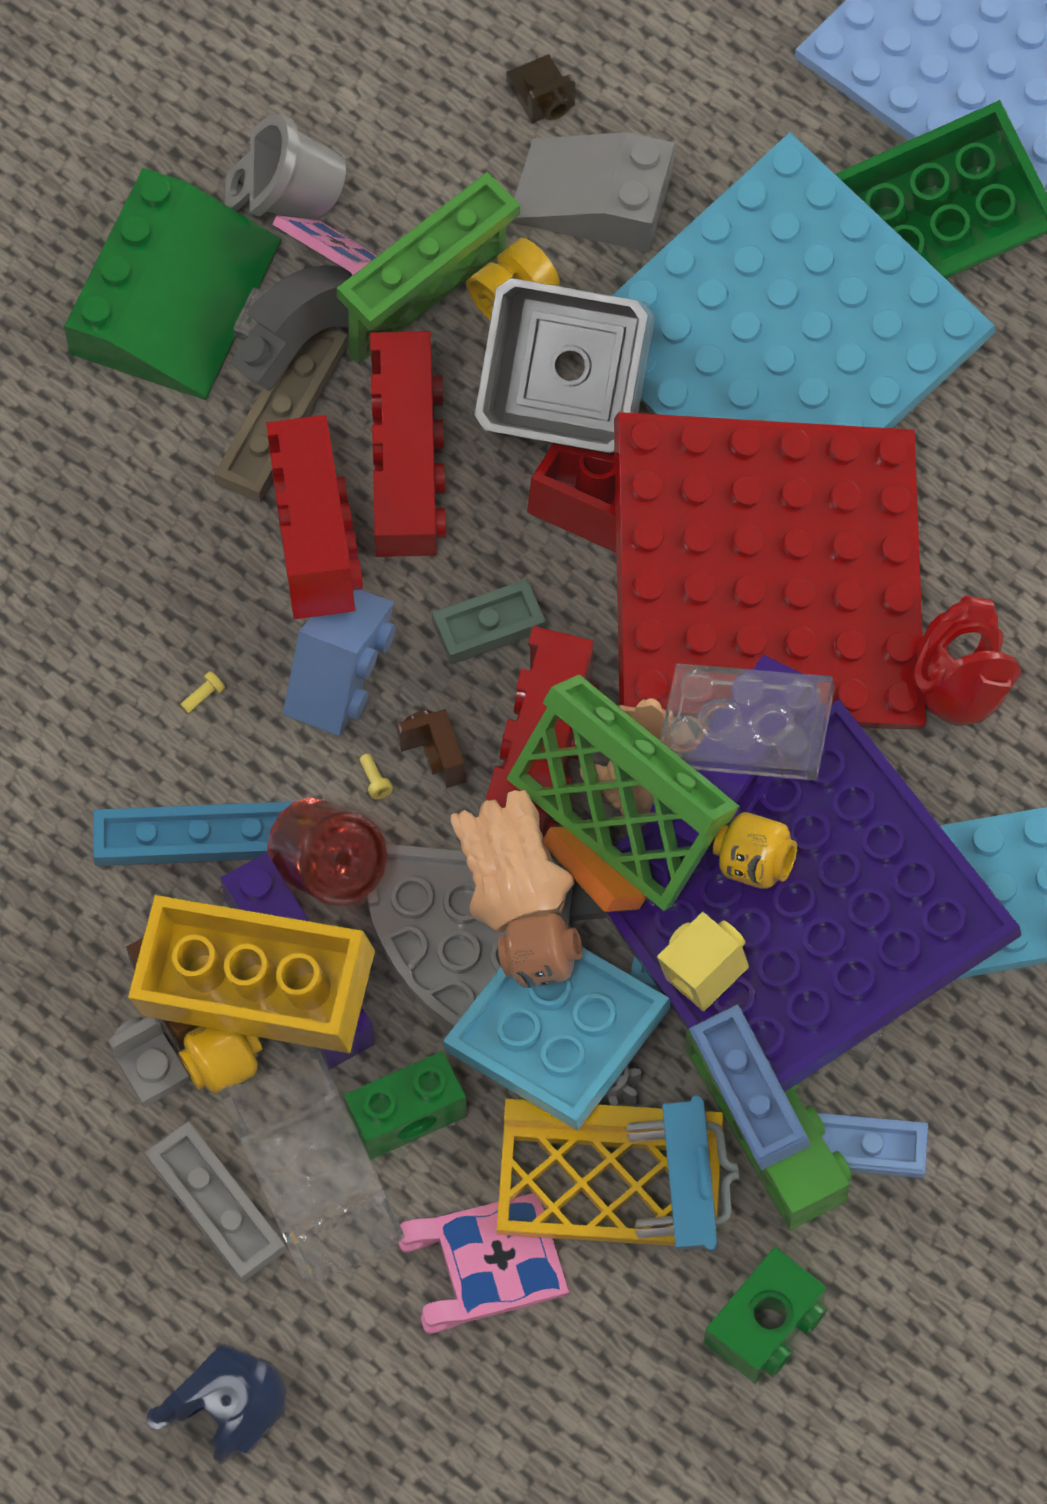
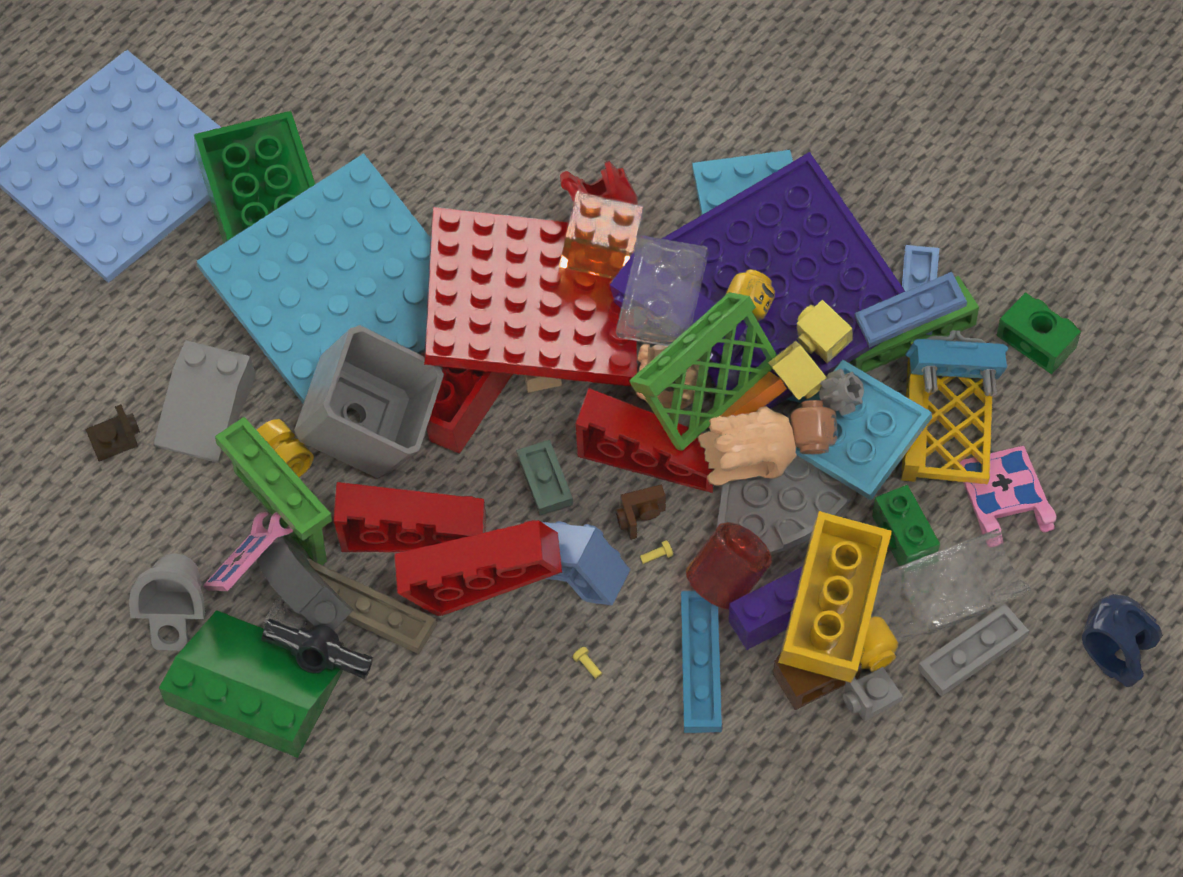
camera: 85 degrees left, 5 degrees down
(207, 350) = (317, 648): none -> black pin
(599, 971) = (841, 392): none -> light grey gear
(632, 924) = (798, 371): none -> light yellow brick
(875, 652) = (600, 235): none -> clear orange brick

